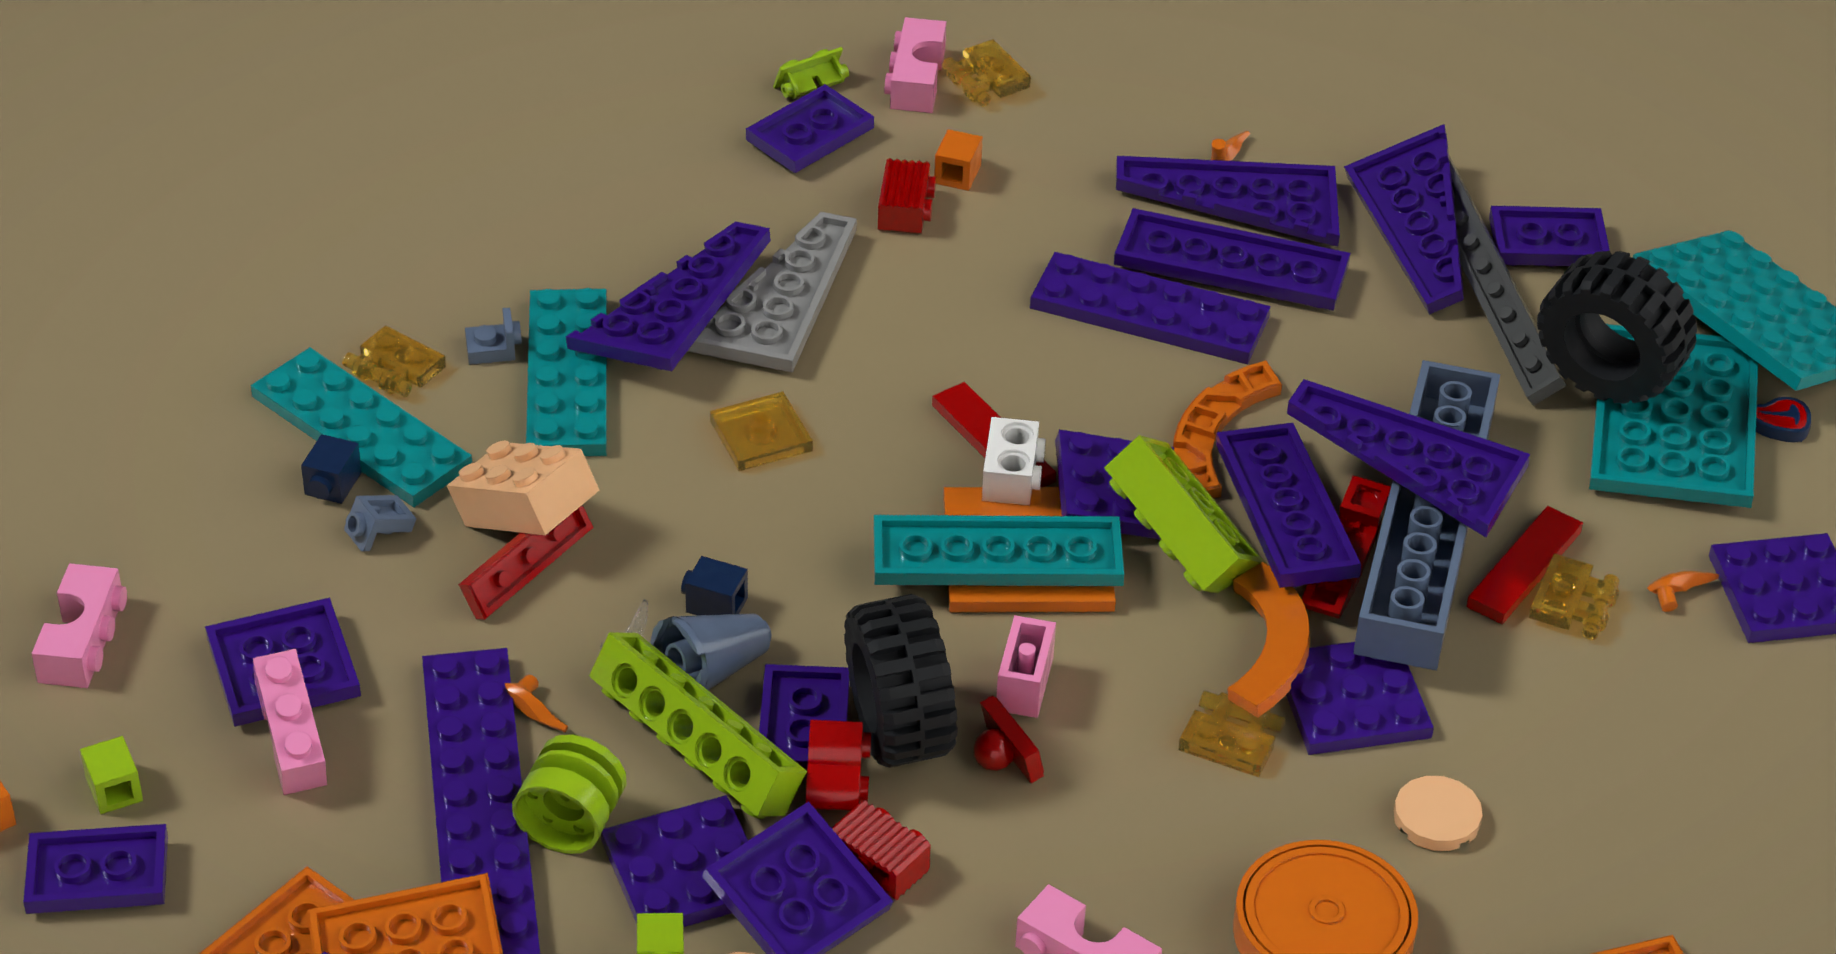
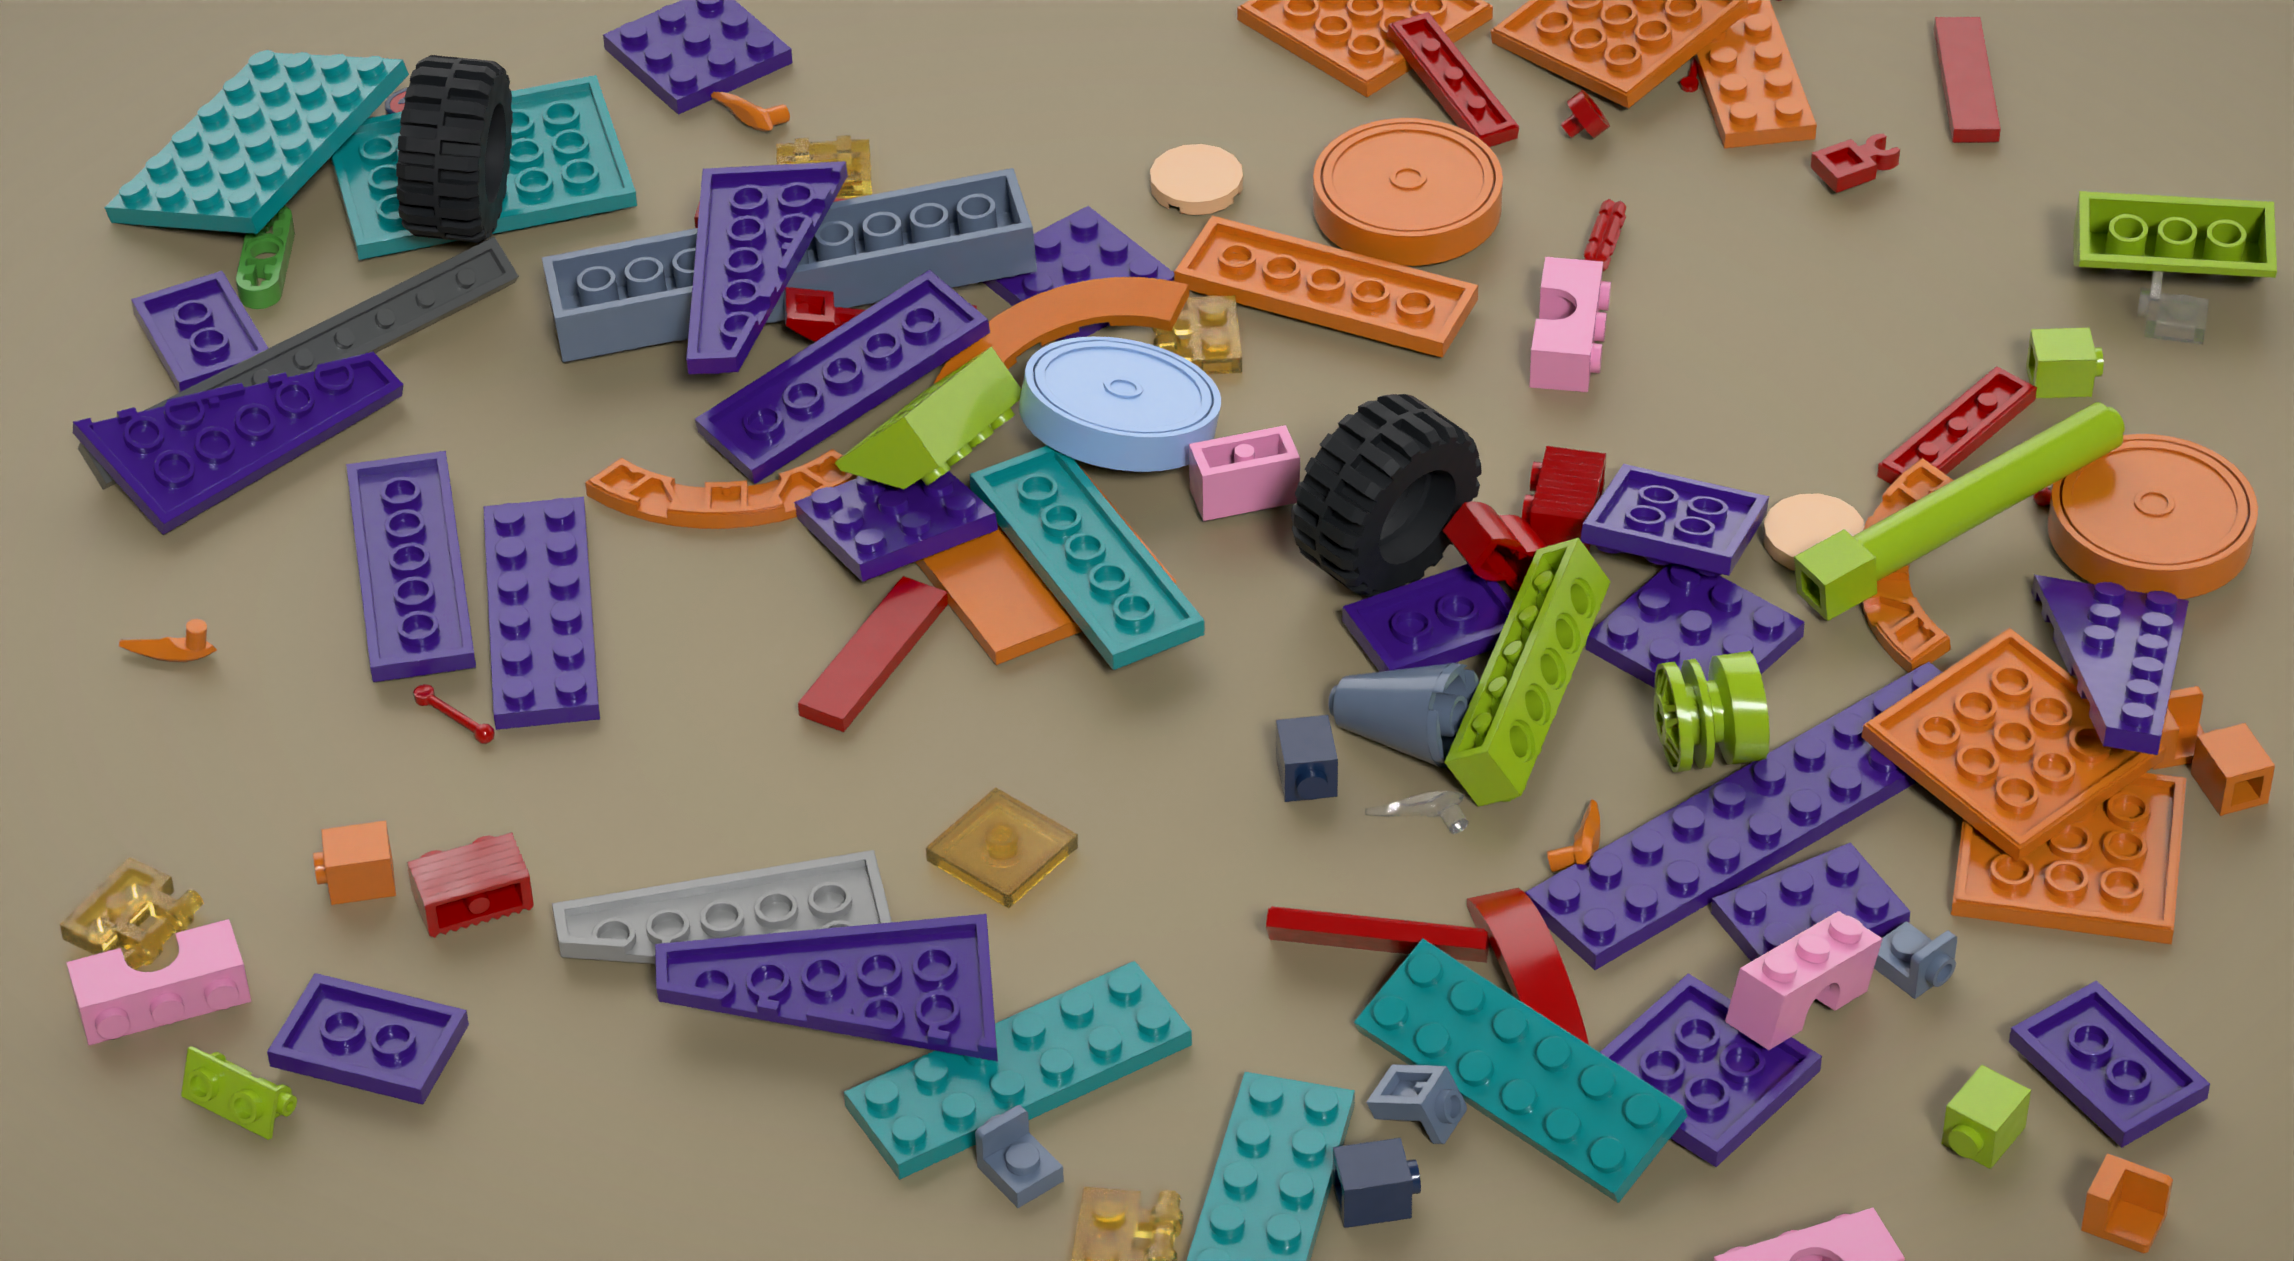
camera: 115 degrees left, 0 degrees up
(278, 821) = (1915, 960): none -> sand blue bracket
(356, 570) = (1522, 1070): none -> teal plate
(369, 793) = (1802, 895): none -> plate
(448, 617) = (1528, 956): none -> red slope
(523, 487) = (1302, 948): light nougat brick -> none
(1011, 461) = (936, 589): white brick -> none
(1105, 240) = (425, 695): none -> red hinge
(1148, 626) = (1118, 403): none -> light blue brick
(1236, 826) = (1327, 286): none -> orange plate
(1266, 195) = (263, 593): dark purple wing -> none

